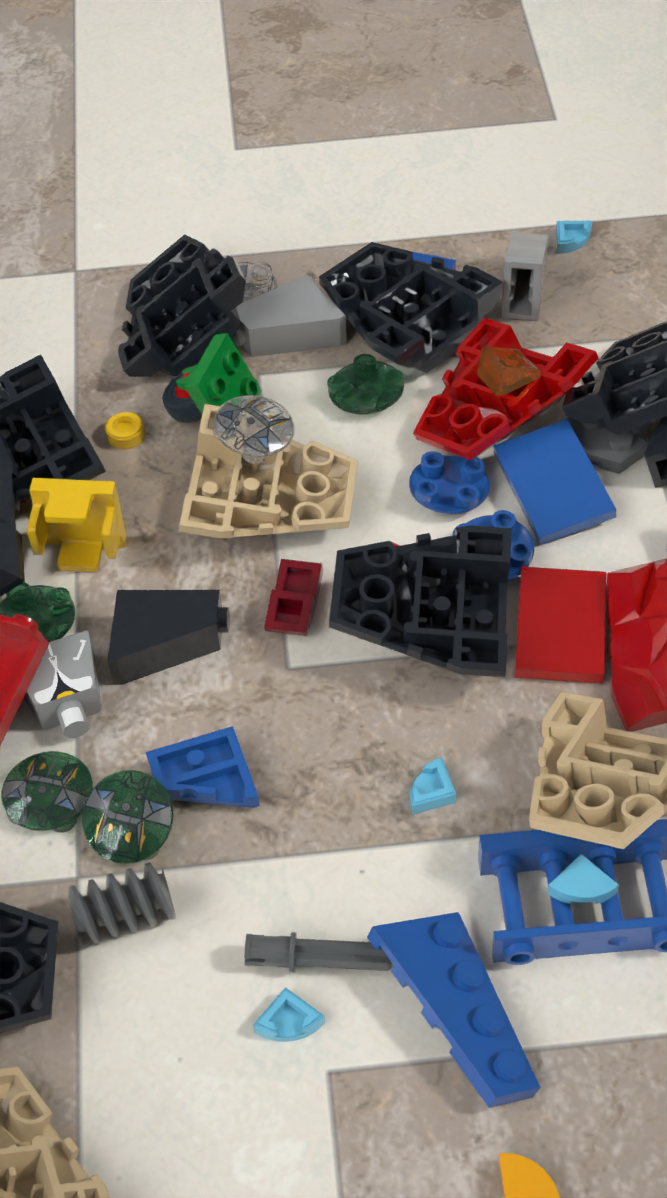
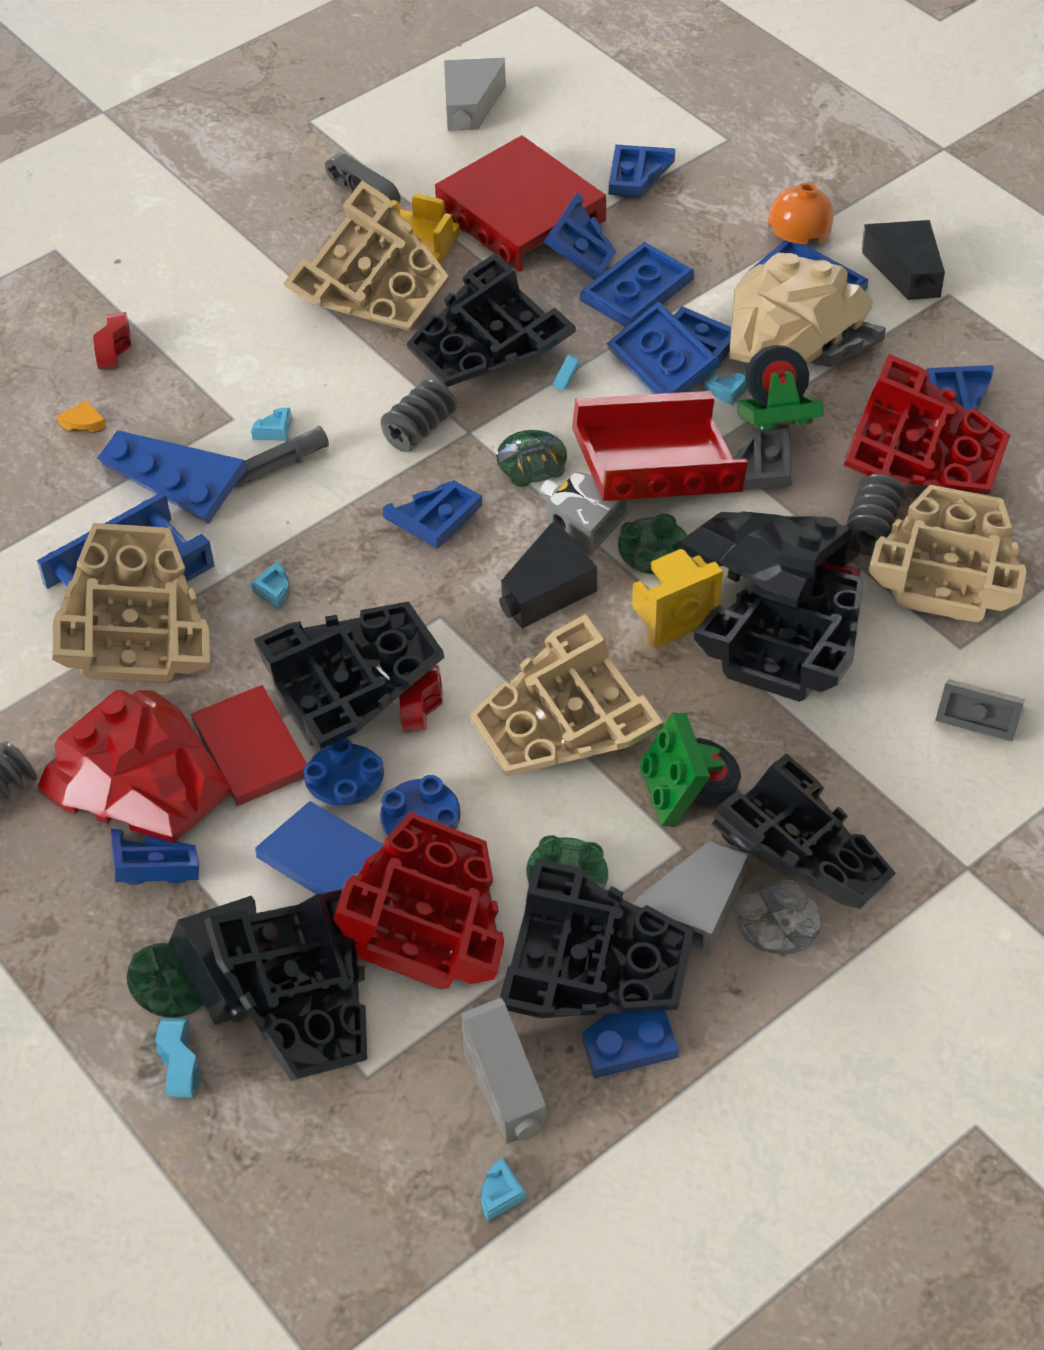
camera: 145 degrees right, 0 degrees up
(125, 430) = (742, 725): yellow tile -> none
(127, 817) = (459, 459): clear green dish -> none
(253, 427) = (602, 722): clear dish -> none
(294, 597) = (473, 657): dark red slope -> none
(505, 370) = (423, 899): clear orange slope -> none

